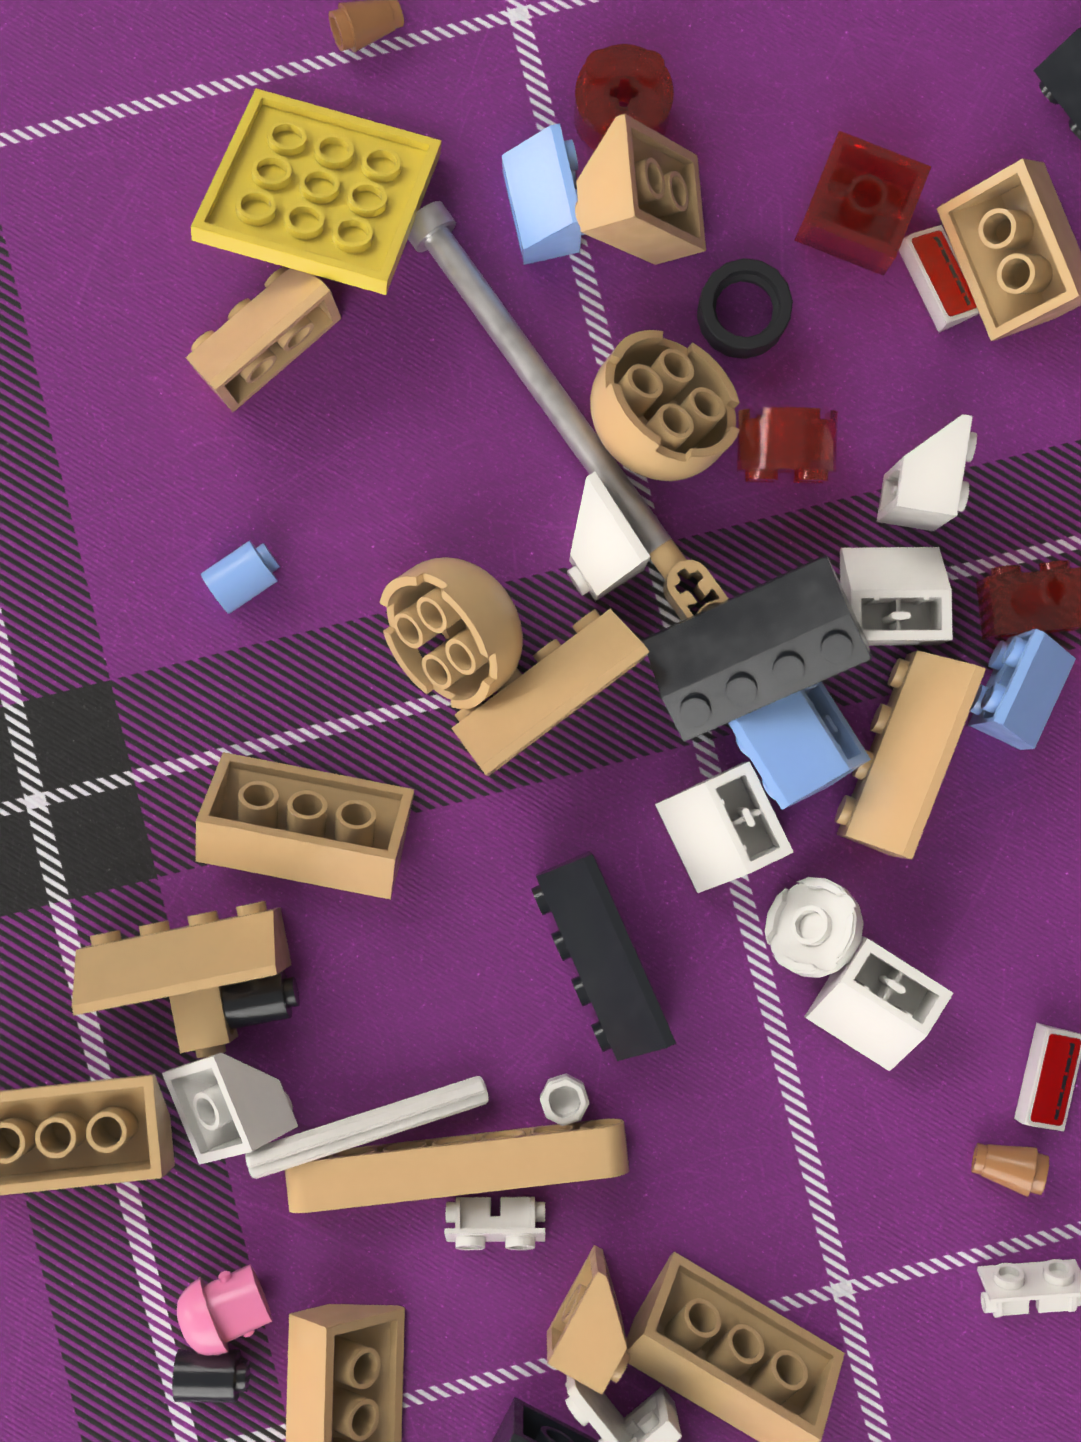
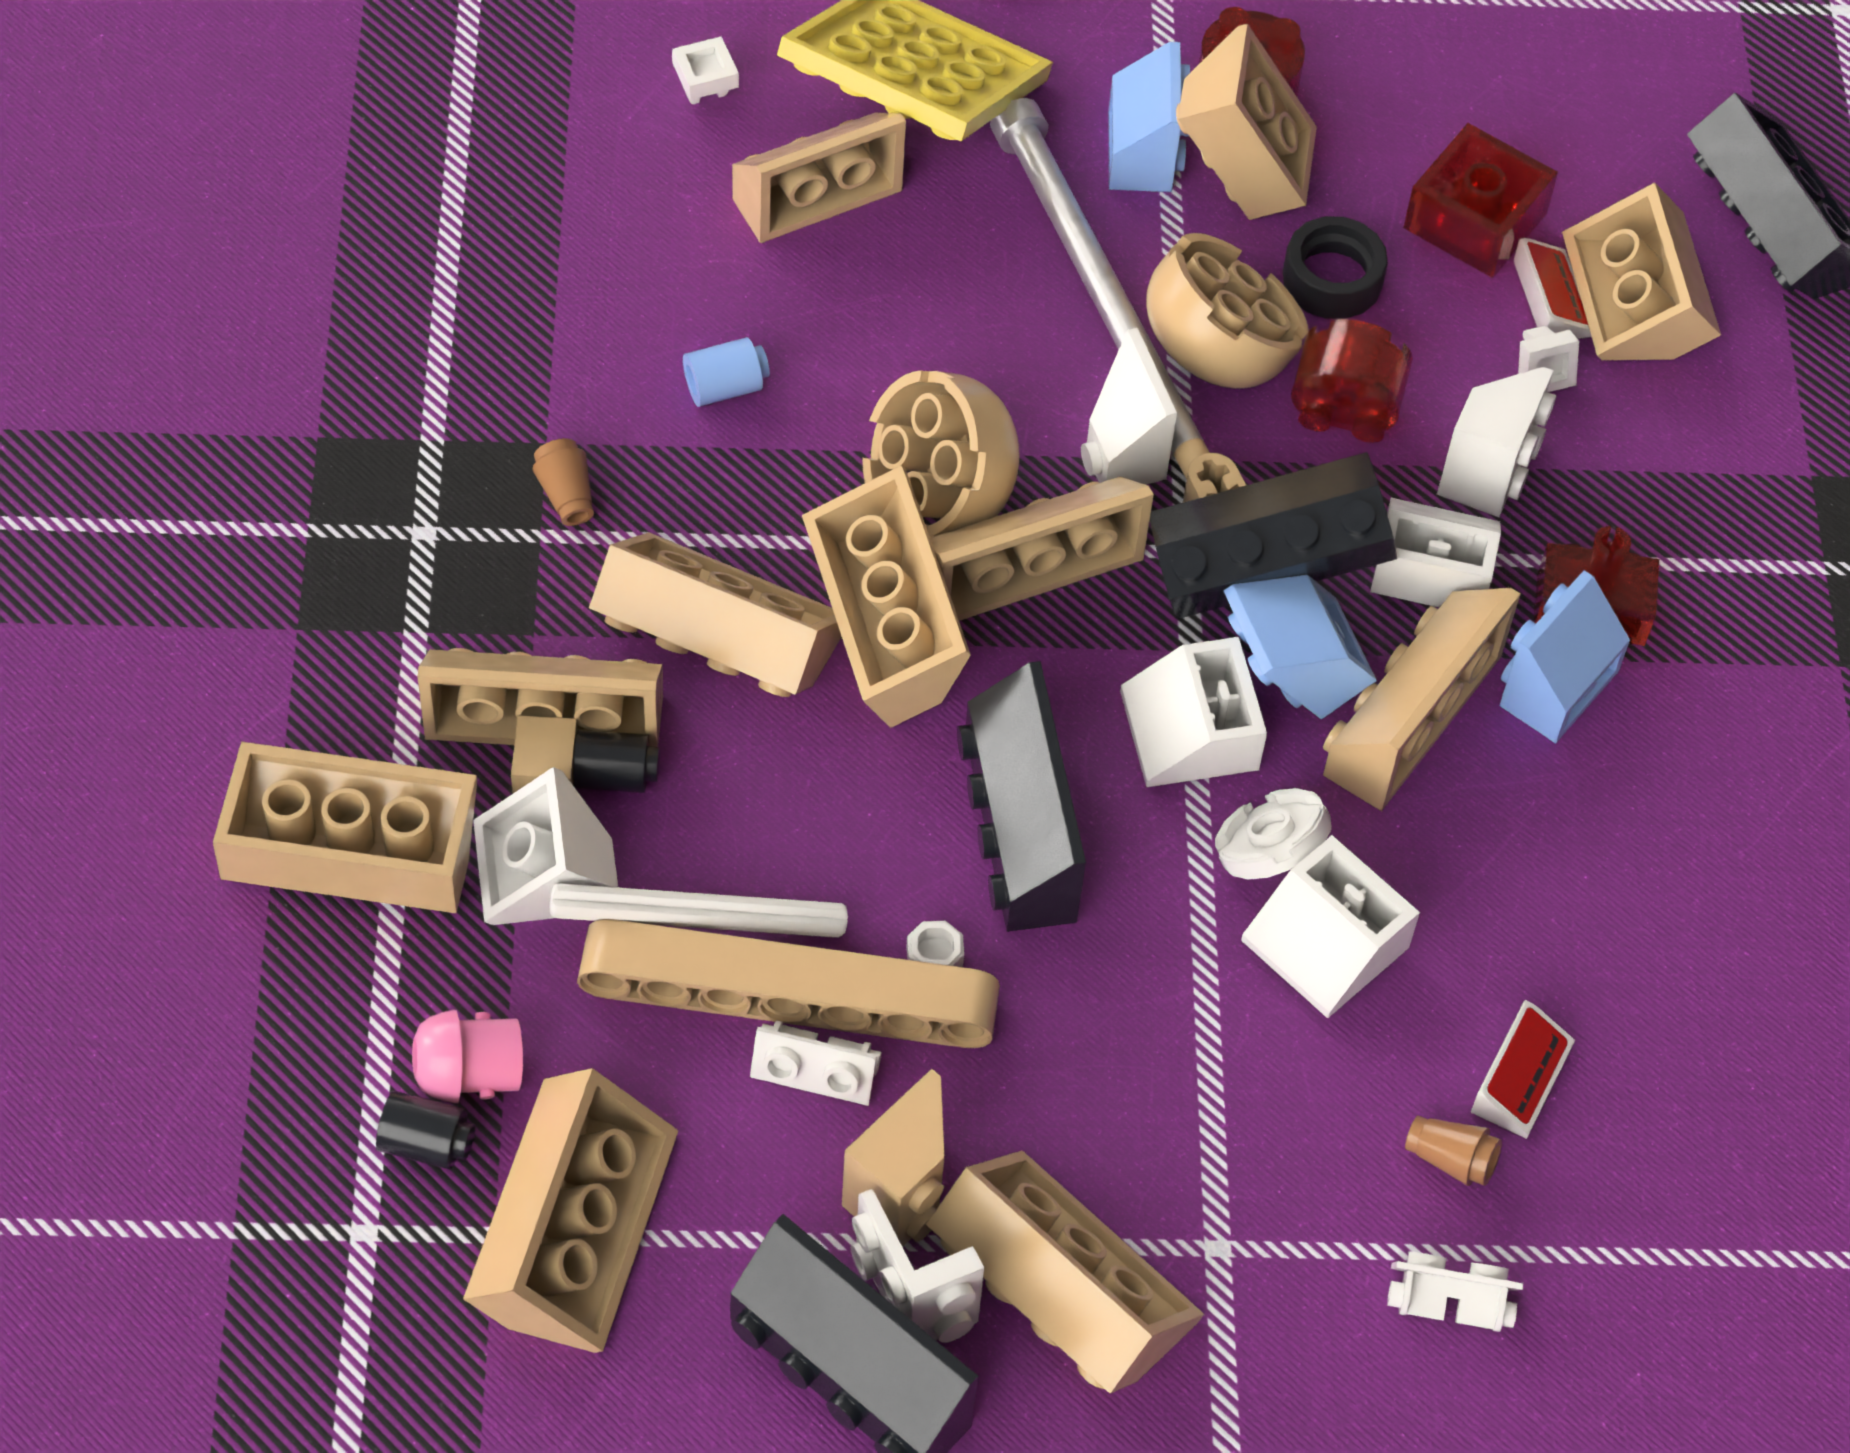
camera: 15 degrees right, 30 degrees down
(130, 243) = (705, 69): none -> white tile
(138, 727) = (565, 479): none -> medium nougat cone
(440, 794) = (888, 596): none -> tan slope
(949, 362) = (1553, 351): none -> white tile

